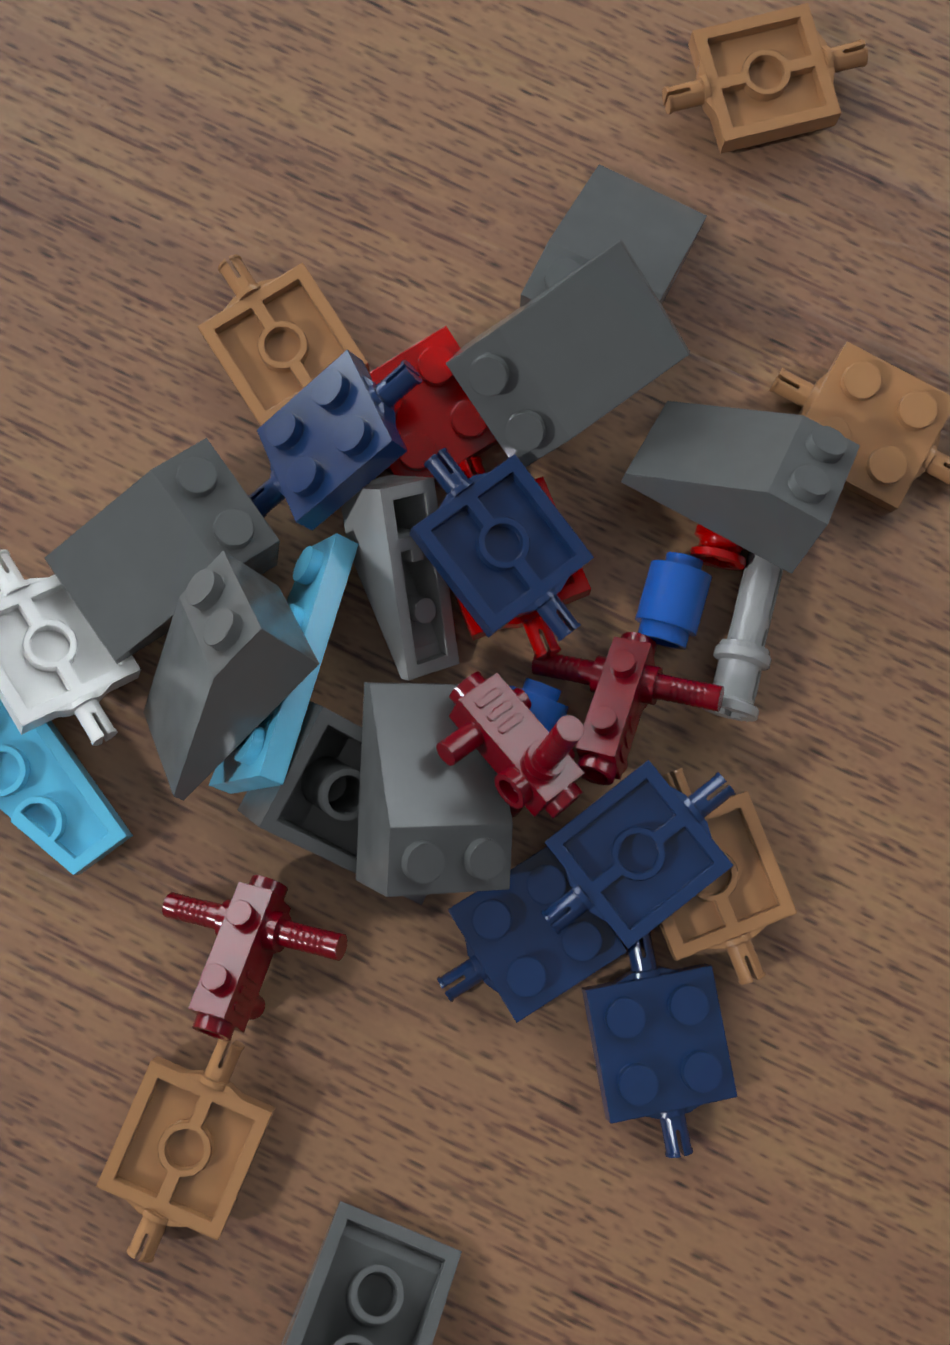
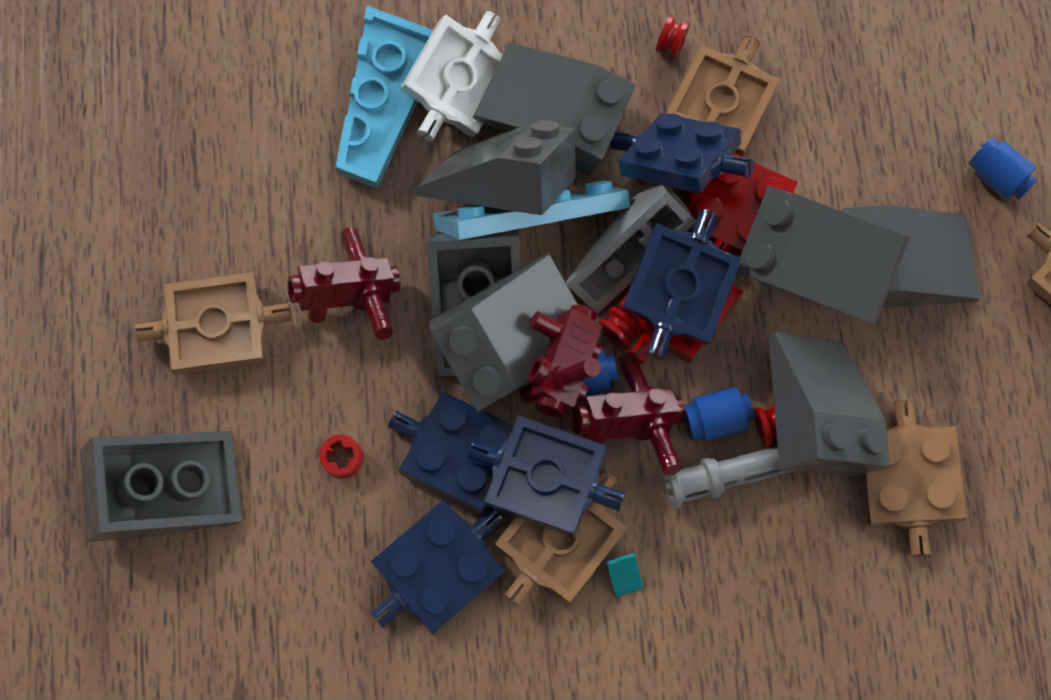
camera: 60 degrees right, 10 degrees down
(164, 353) = (672, 37): none -> red bush
(465, 1096) = (350, 445): none -> red bush
(498, 650) = (620, 328): none -> red bush
(575, 83) = (1003, 169): none -> blue brick
(790, 825) = (624, 574): none -> teal piece

